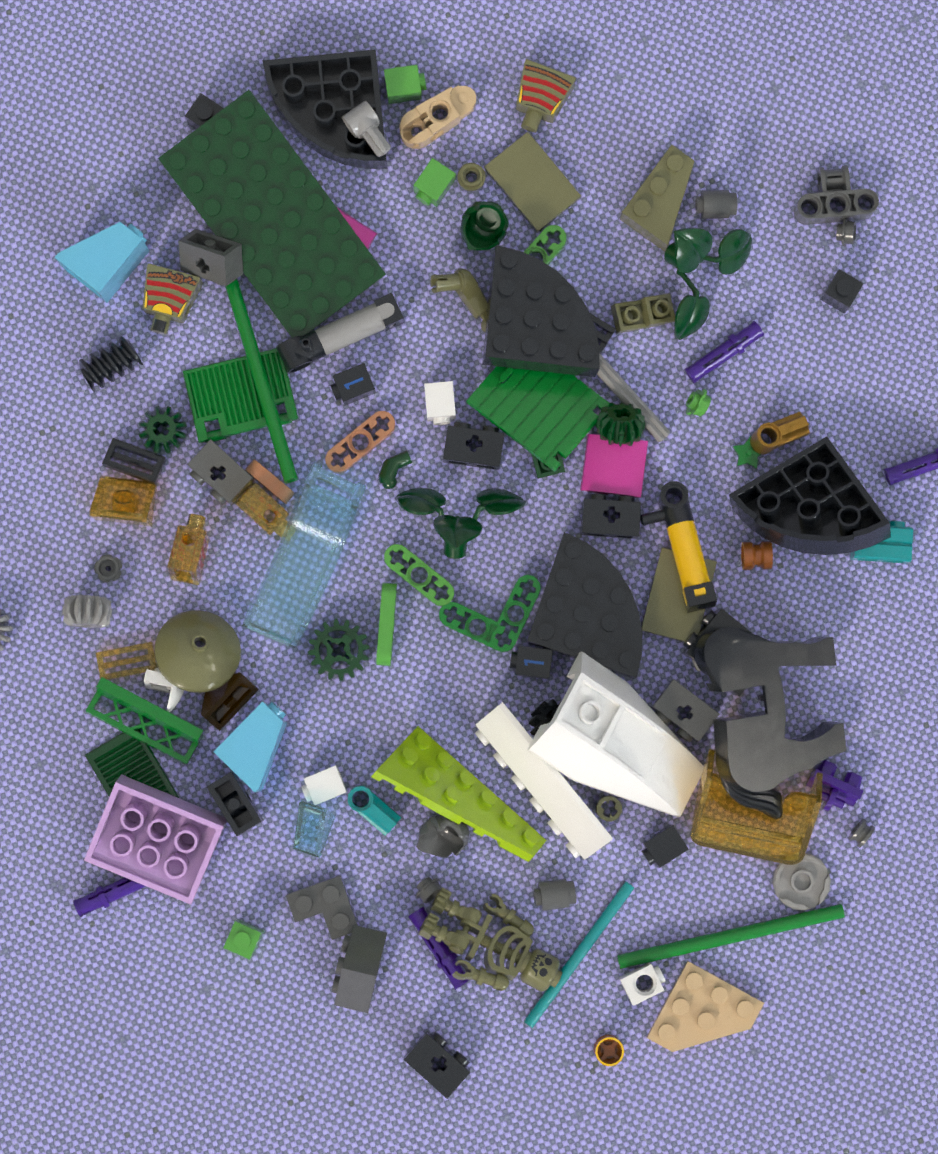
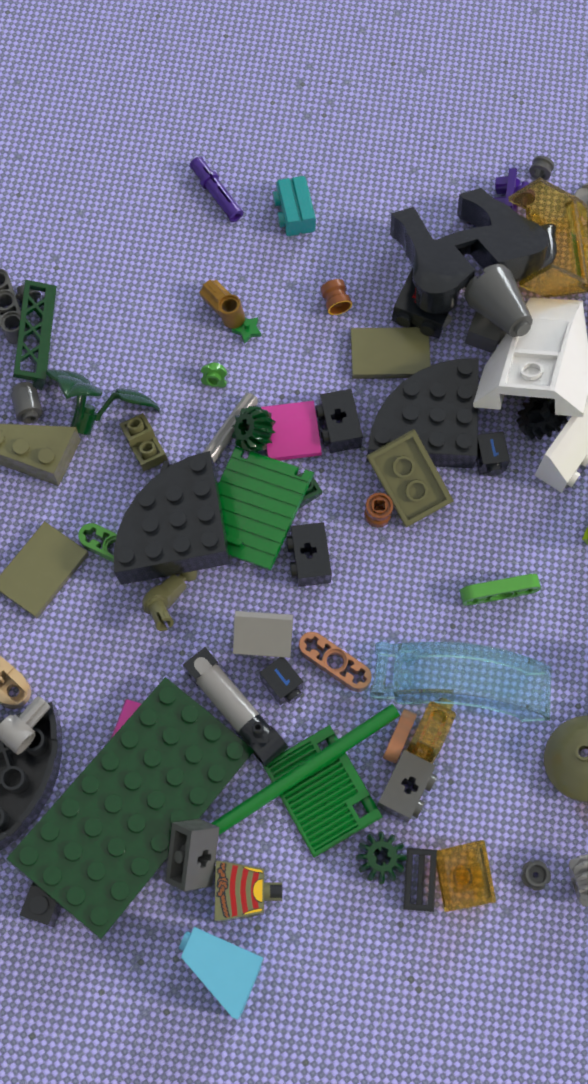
camera: 105 degrees left, 15 degrees down
(109, 363) = (328, 933): black piece -> none
(188, 561) = (507, 791): clear yellow torso -> none
(329, 661) = (549, 631): dark green gear -> none
(390, 468) = (351, 626): dark green arm -> none
(395, 374) = (262, 634): none -> light grey slope
(407, 555) = (444, 594): bright green beam -> none
(434, 183) = (62, 657): bright green brick -> none
(440, 402) = (277, 595): white brick -> none
(455, 529) = (403, 526): dark green plant -> none
(471, 168) = (44, 619): olive plate -> none
(483, 225) = (95, 598): dark green hair -> none
(493, 627) = (470, 497): green beam -> none
(501, 532) = (378, 515): none -> dark orange wheel
(523, 566) = (410, 478): none -> olive tile
(683, 712) = (499, 300): none -> dark grey cone
(686, 547) = (382, 330): piece -> none
(751, 332) = (153, 359): dark purple pin -> none
(788, 237) = (43, 335): none -> dark green fence
(812, 505) = (281, 254): black brick -> none
(841, 291) = (83, 283): black brick -> none

